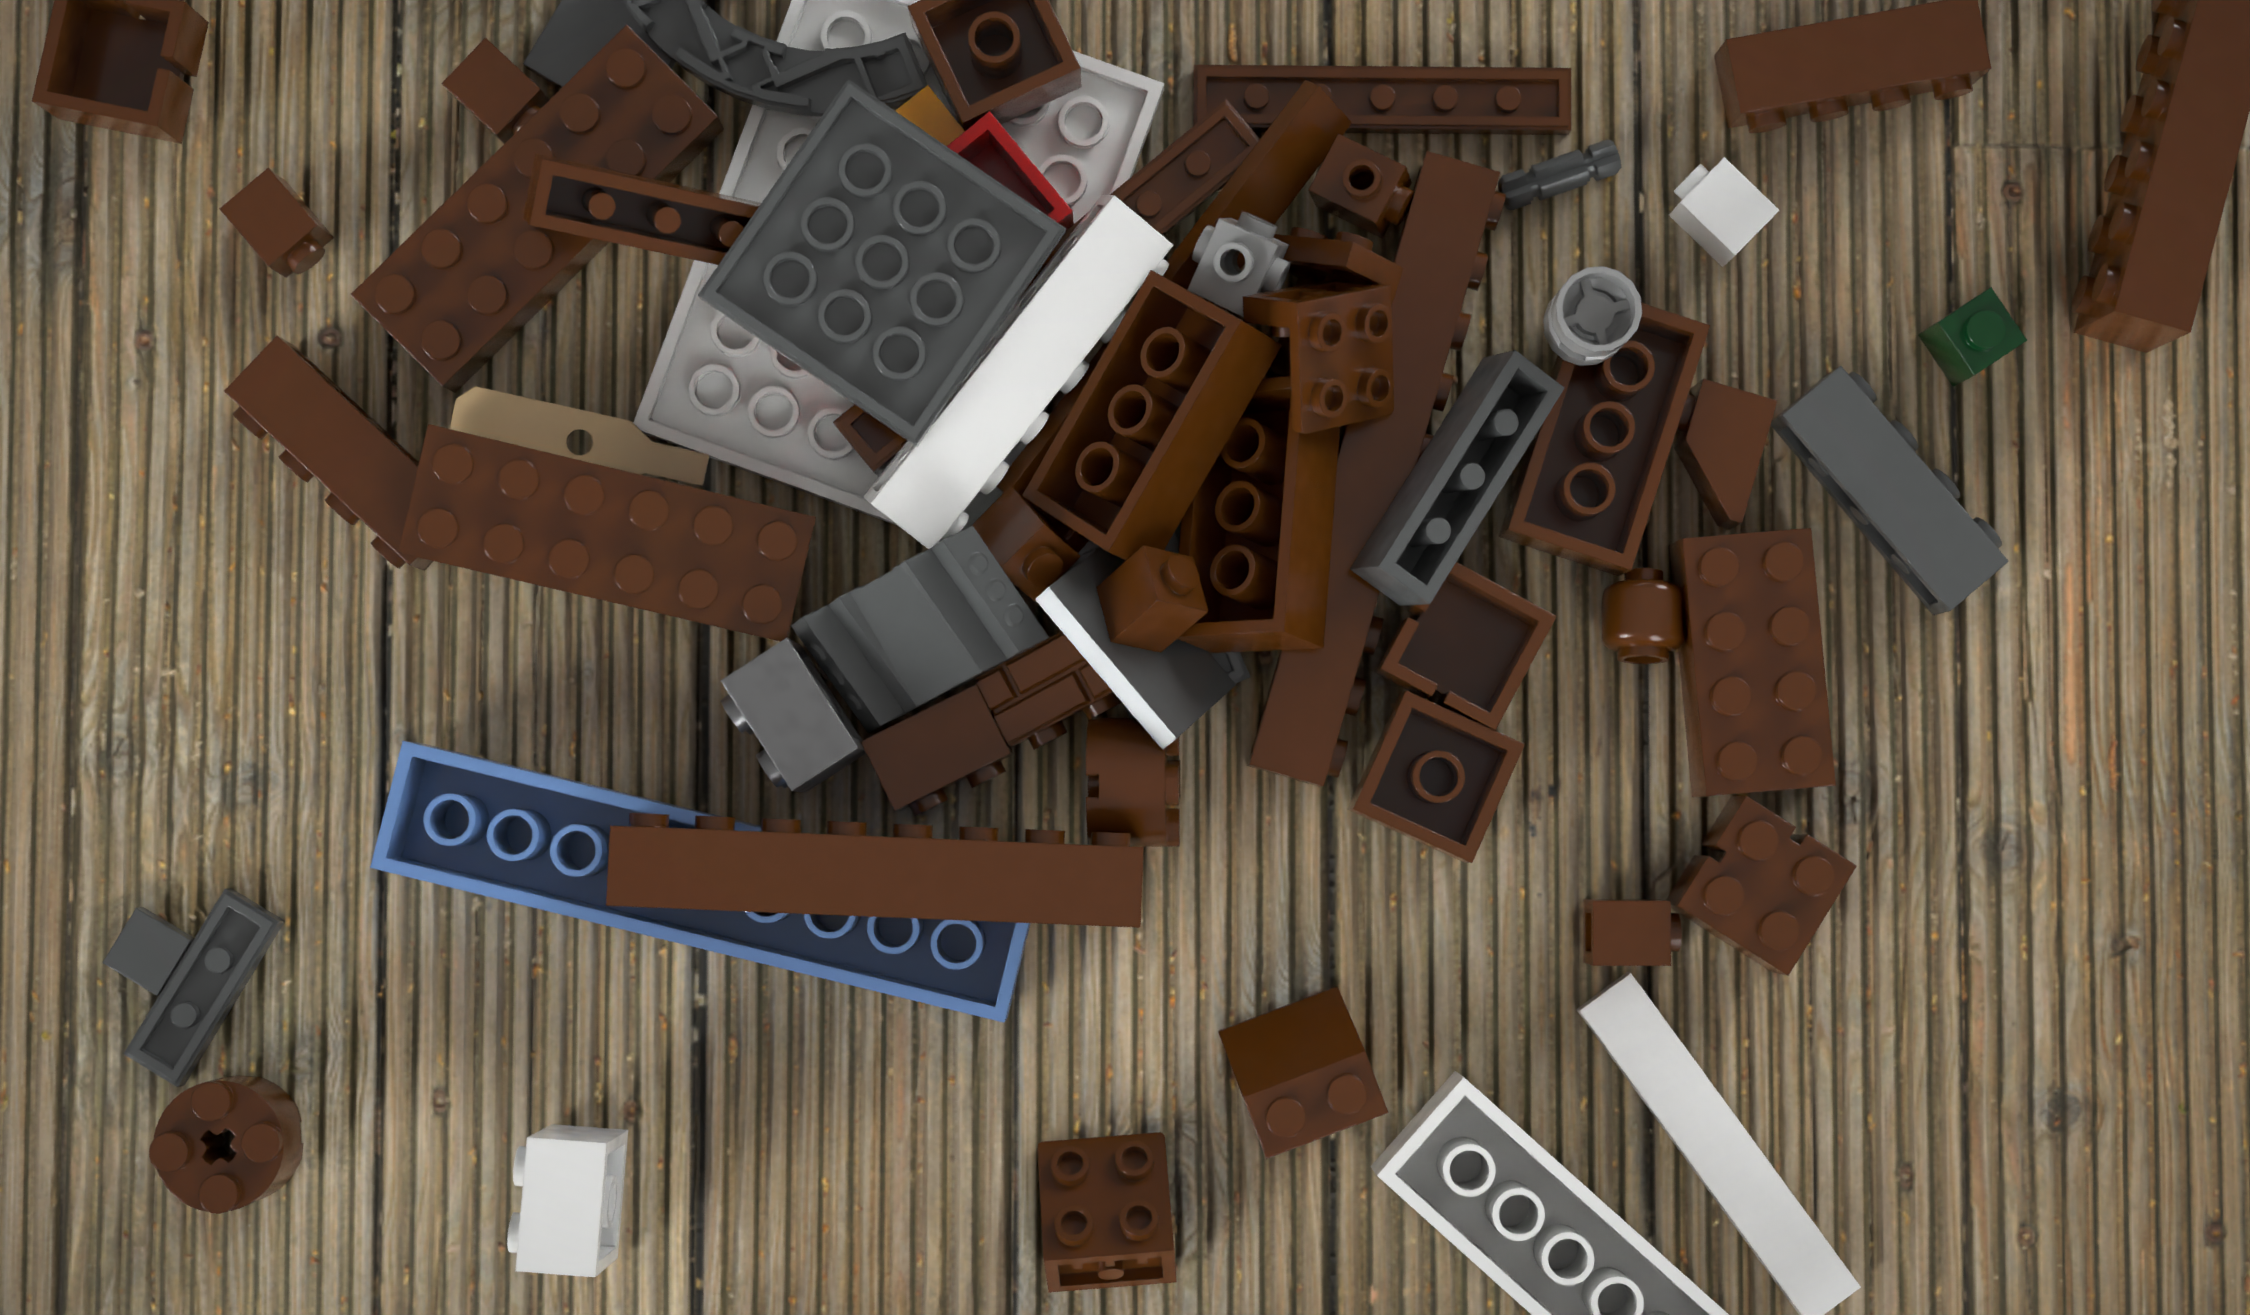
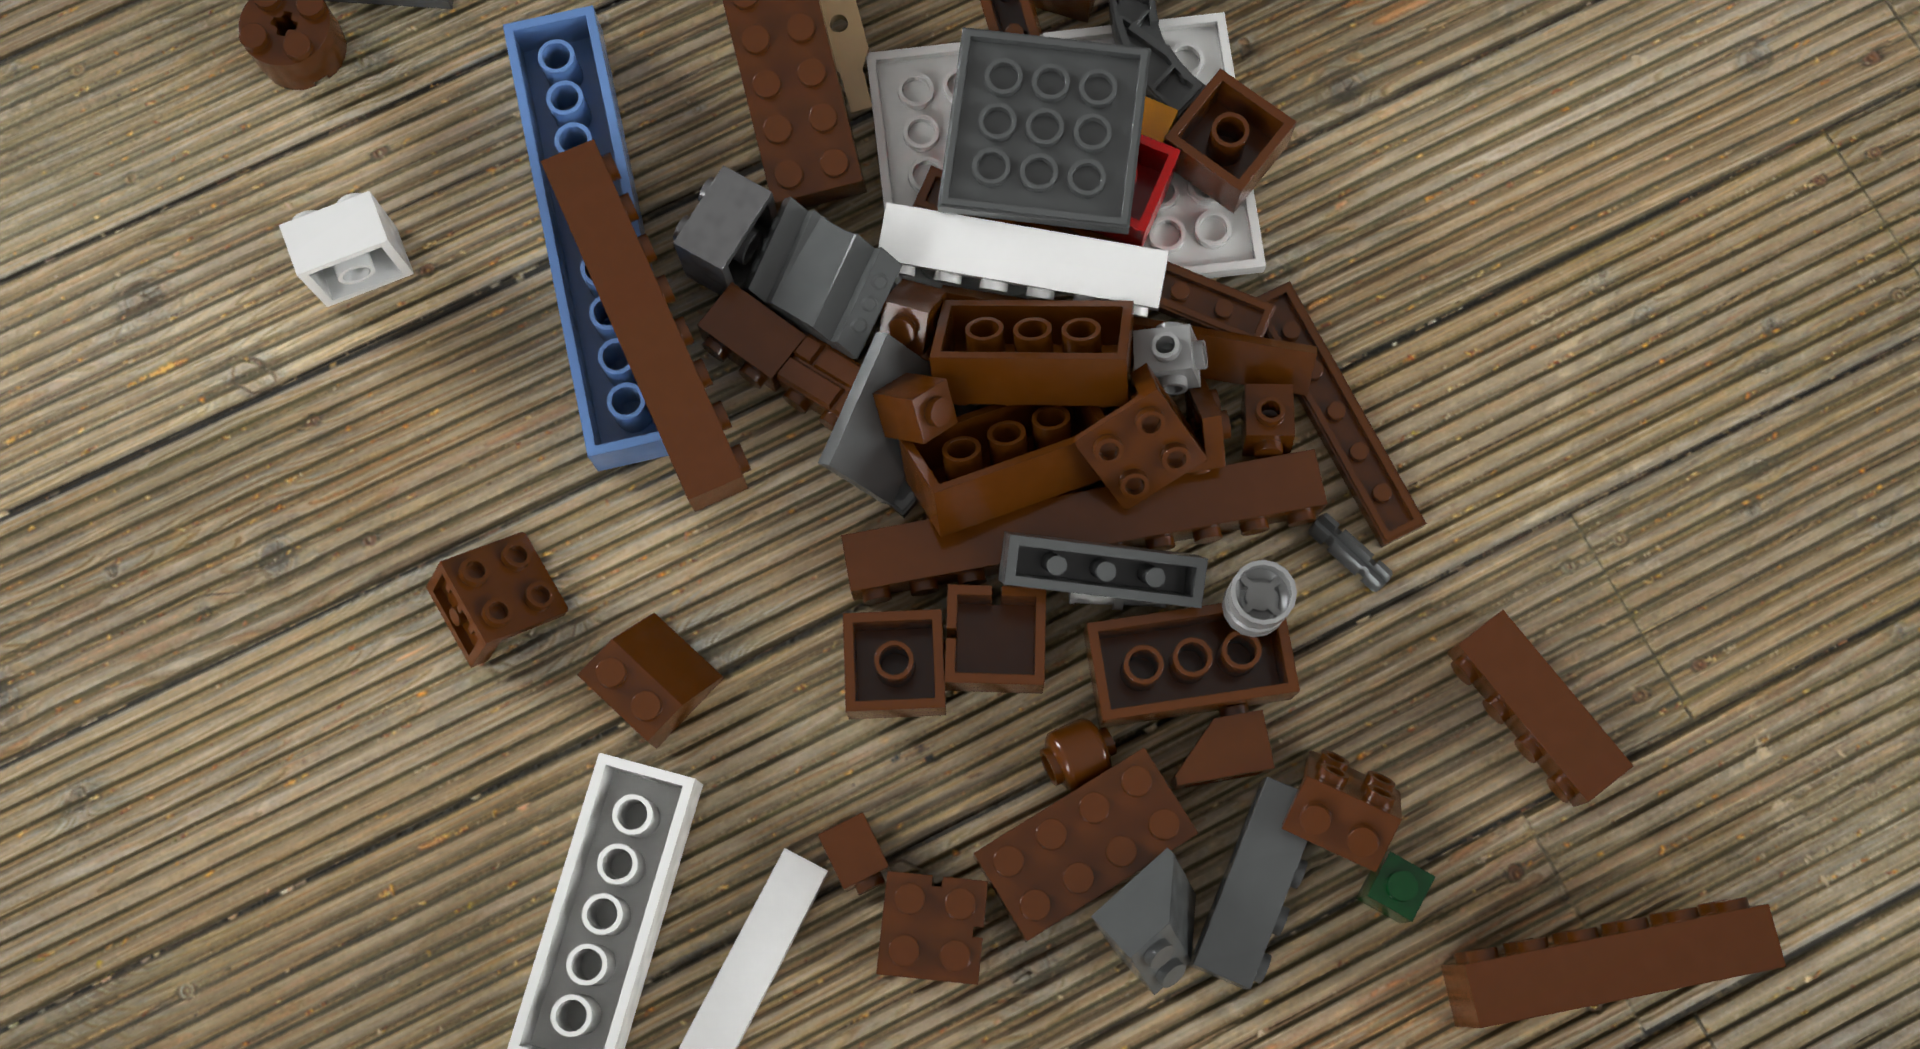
camera: 65 degrees right, 10 degrees down
(1132, 783) = (787, 465): reddish brown brick -> none
(1721, 210) = (1386, 670): white brick -> none
(1863, 344) = (1345, 809): none -> reddish brown bracket
(1886, 632) = (1152, 922): none -> dark grey slope

